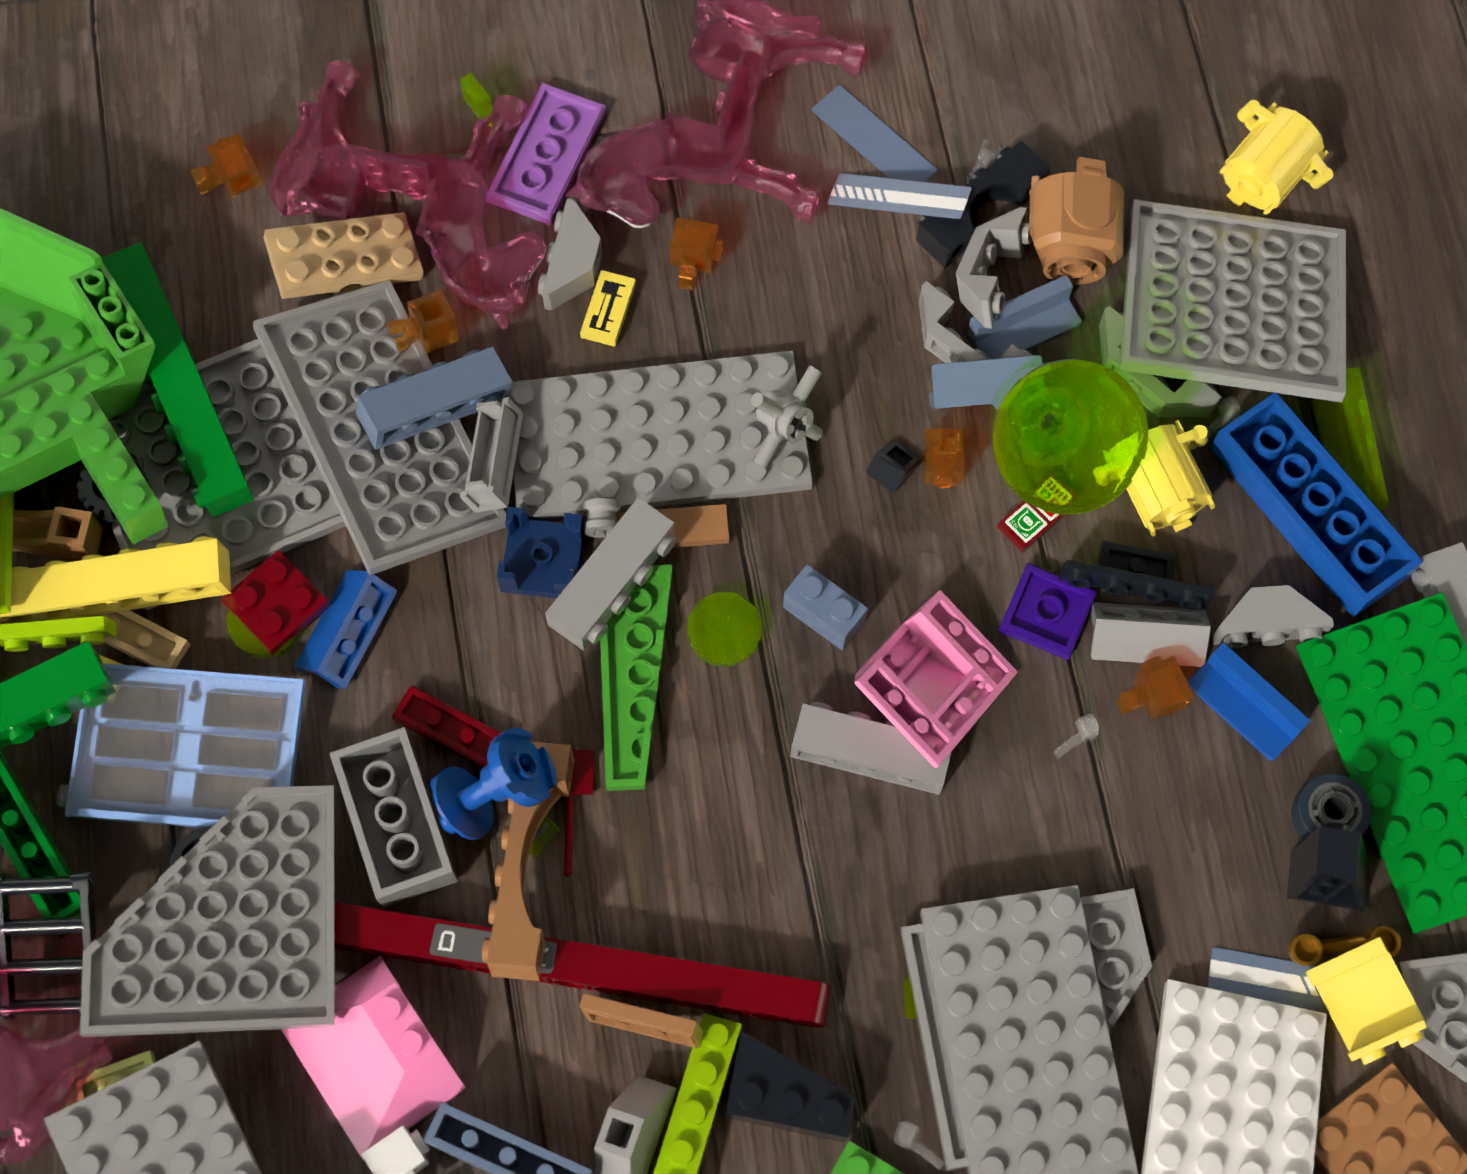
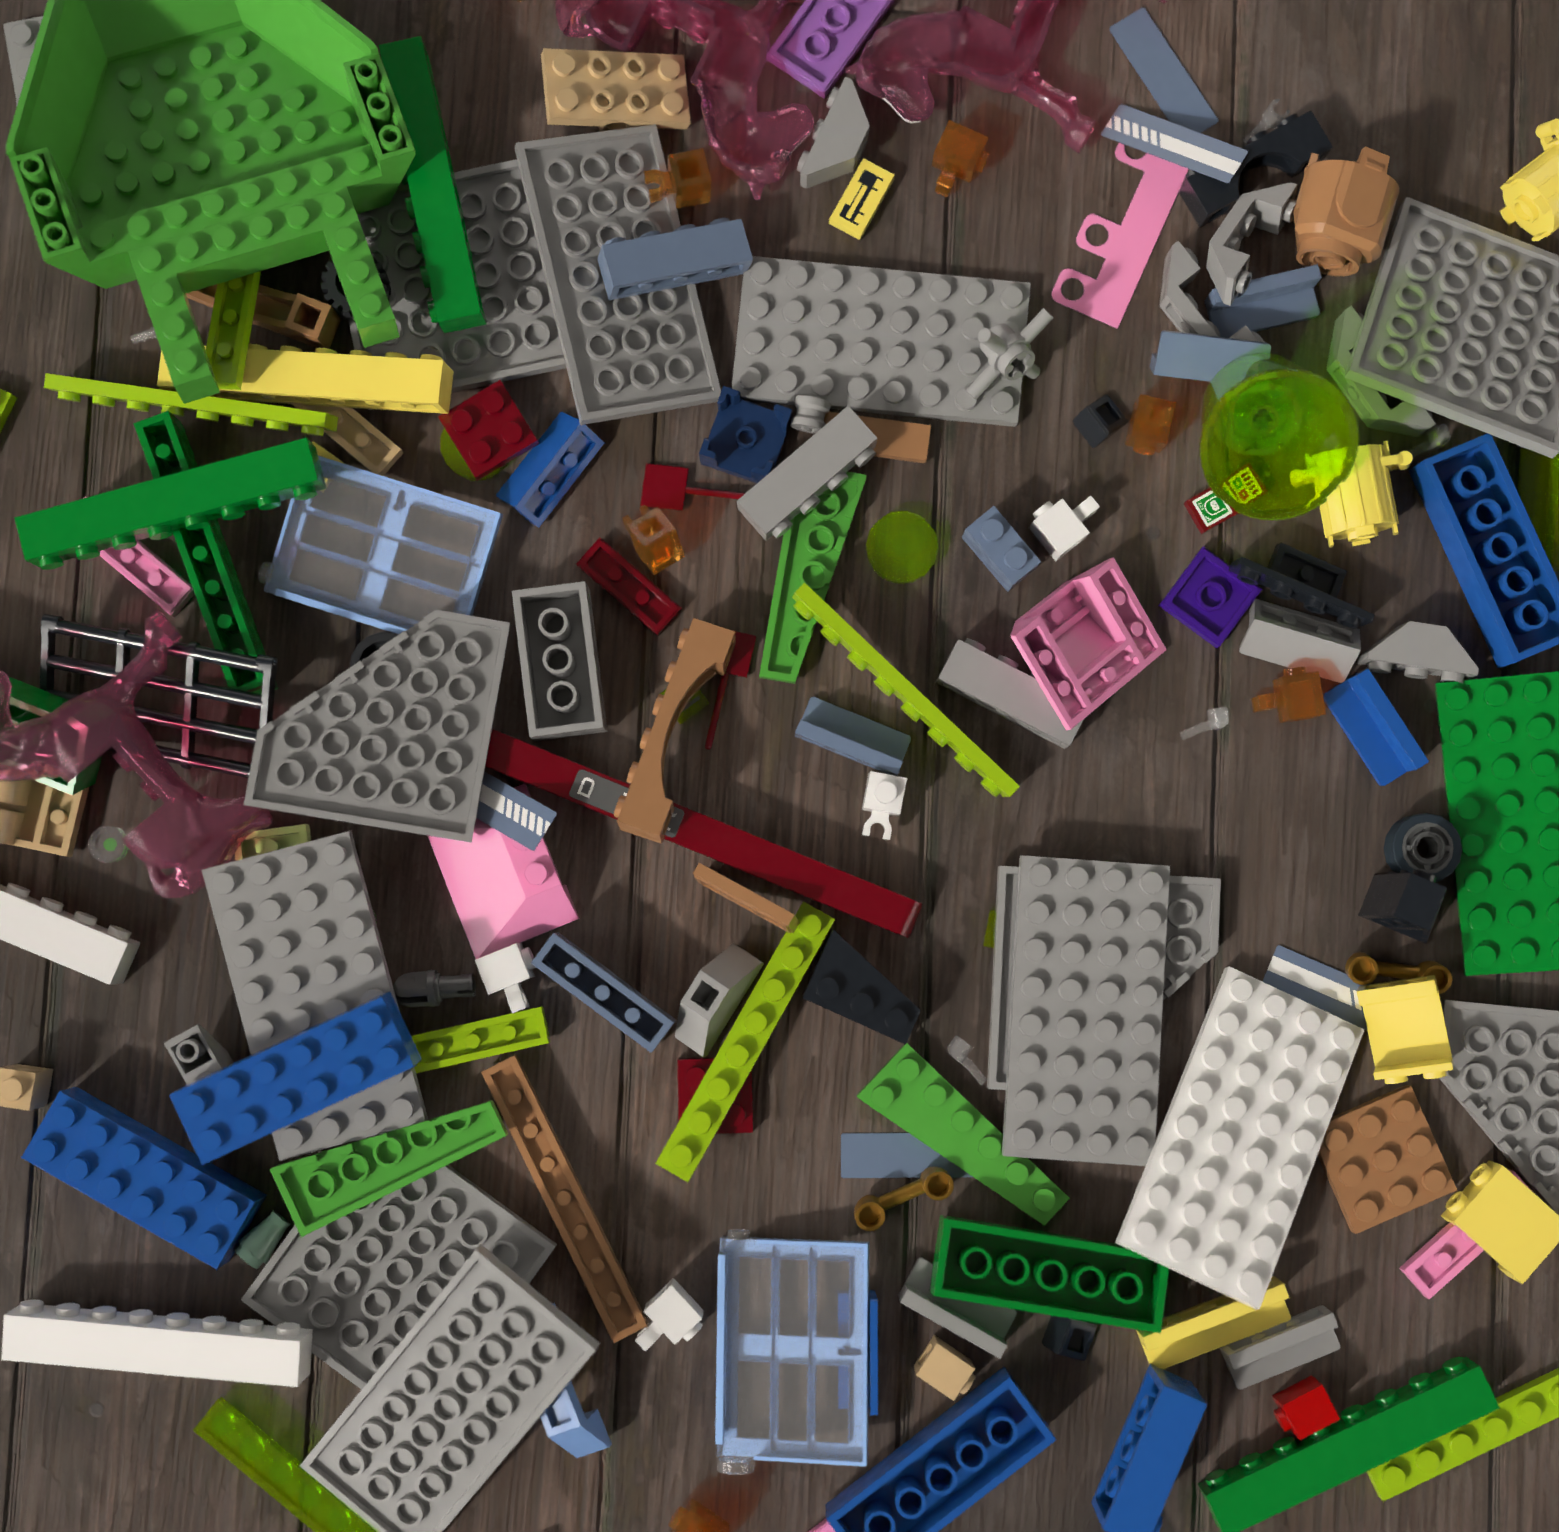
camera: 15 degrees right, 15 degrees up
(374, 983) = (513, 812): none -> sand blue sticker
(468, 673) = (654, 539): none -> clear orange brick
(471, 621) = (667, 487): none -> dark red piece
(493, 455) = (719, 330): light grey container -> none
(513, 772) = (677, 649): blue piece -> none
(717, 830) = (853, 736): none -> sand blue panel
(763, 886) = (883, 798): none -> white brick
(773, 778) = (891, 681): none -> lime plate
(879, 299) = (1127, 244): none -> bright pink piece
(881, 574) = (1060, 527): none -> white brick

